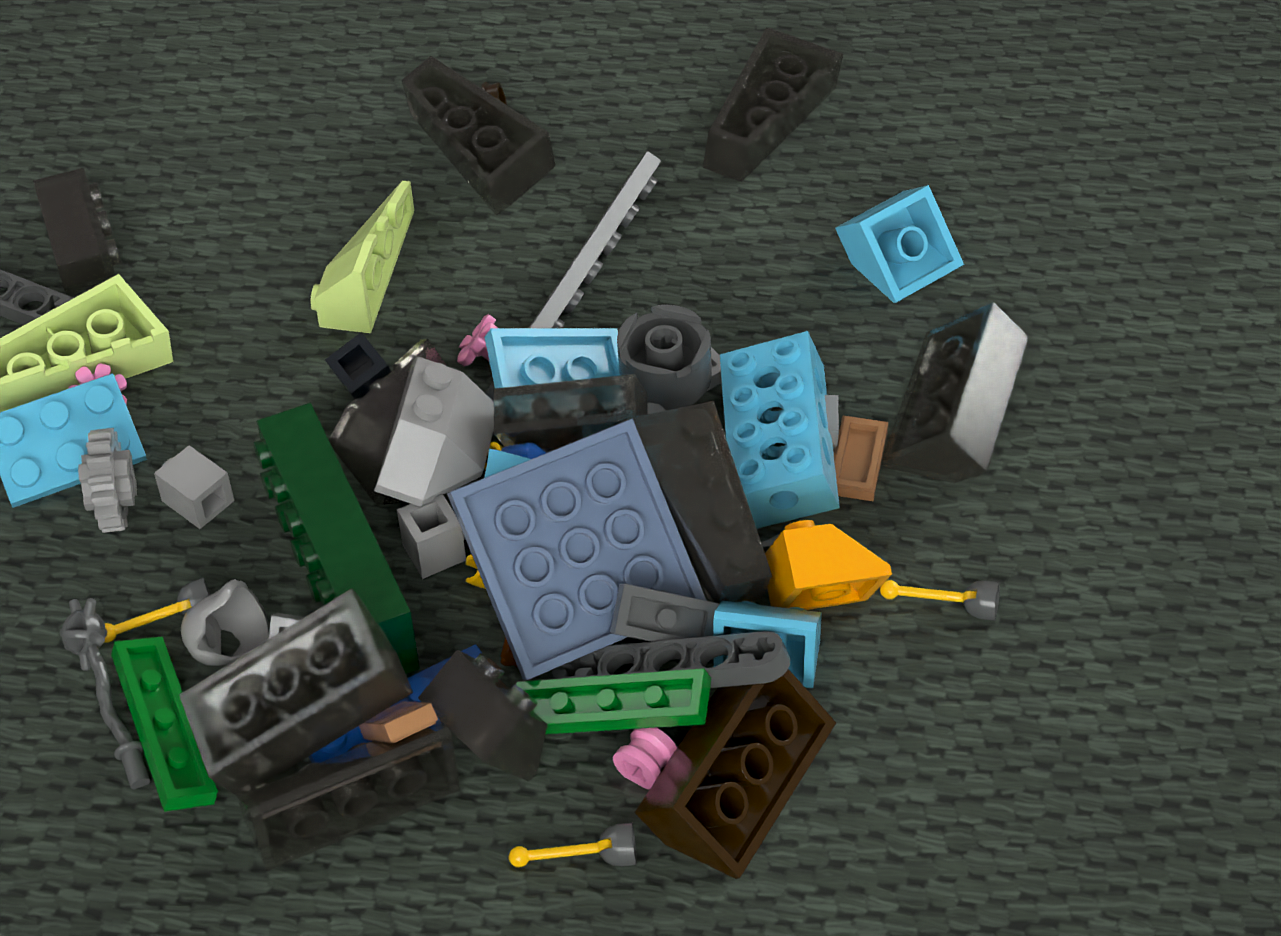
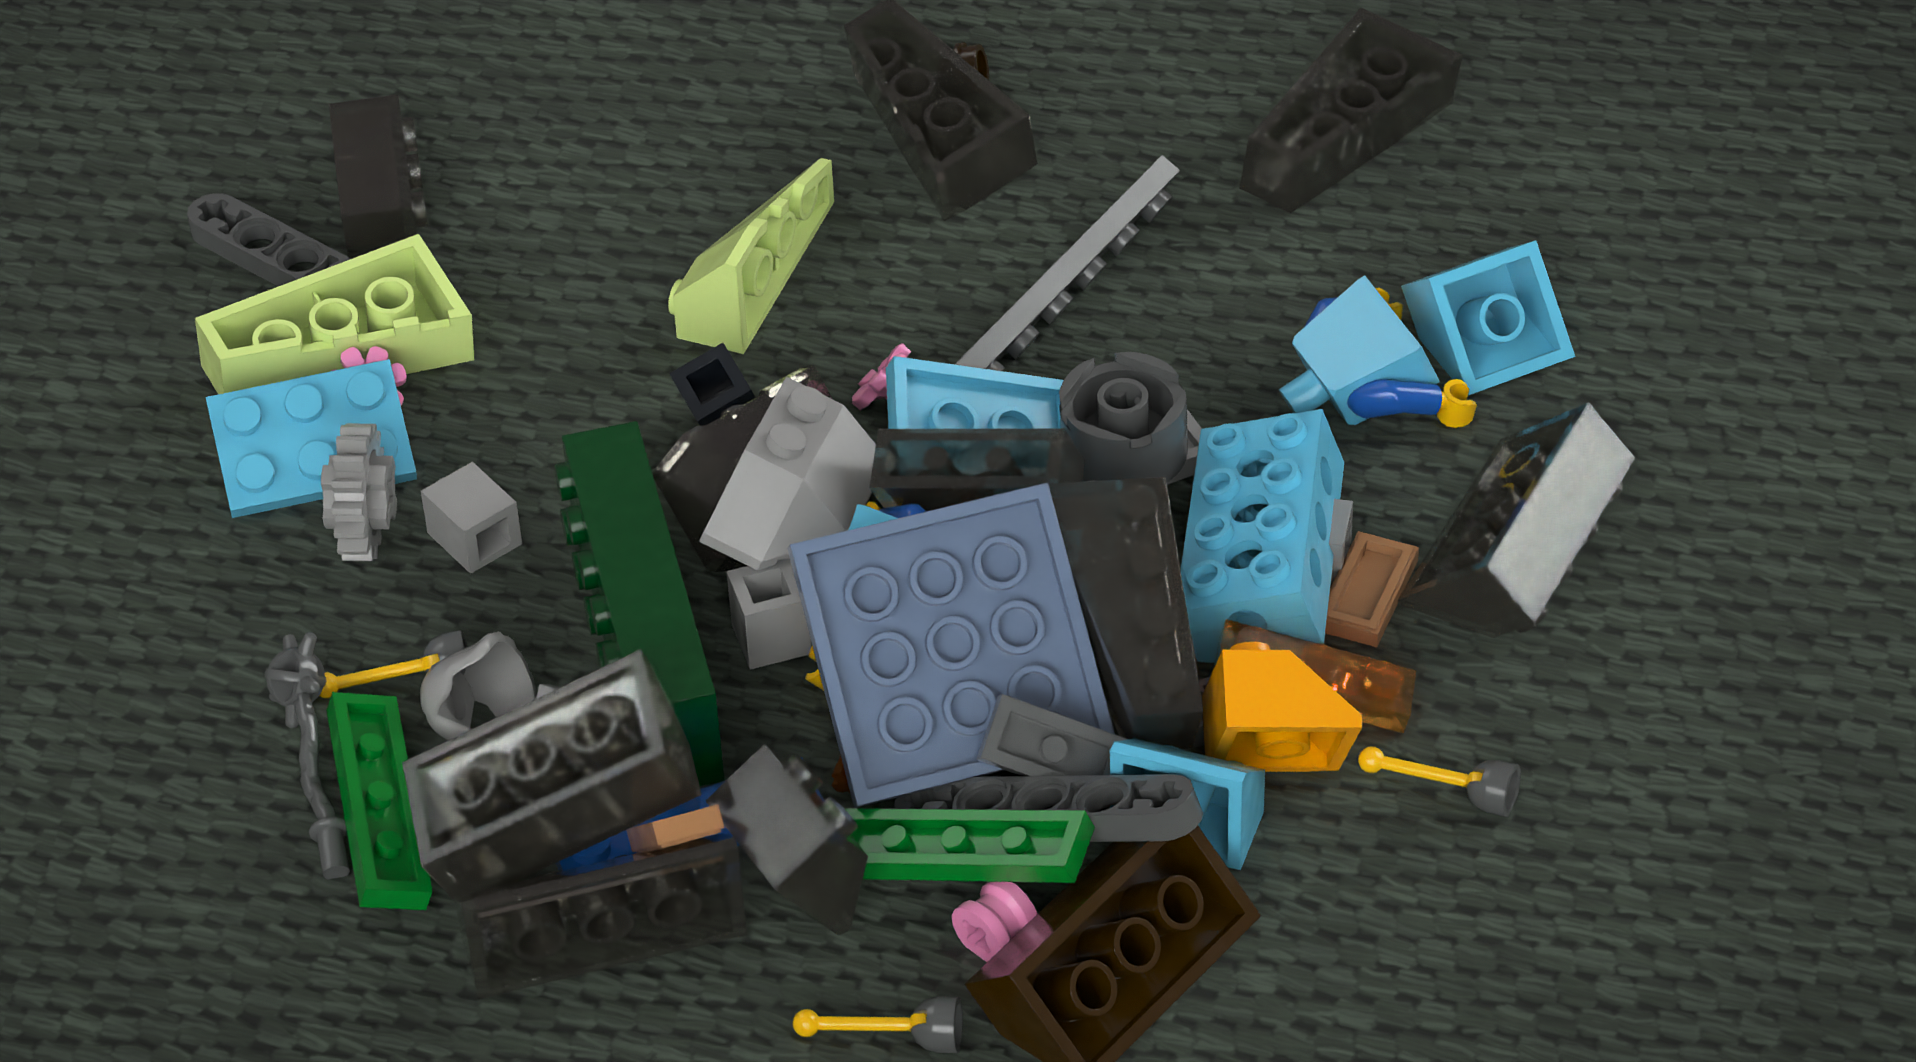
camera: 10 degrees right, 5 degrees down
(825, 289) = (1369, 363): none -> medium azure torso
(880, 533) = (1372, 686): none -> clear orange plate

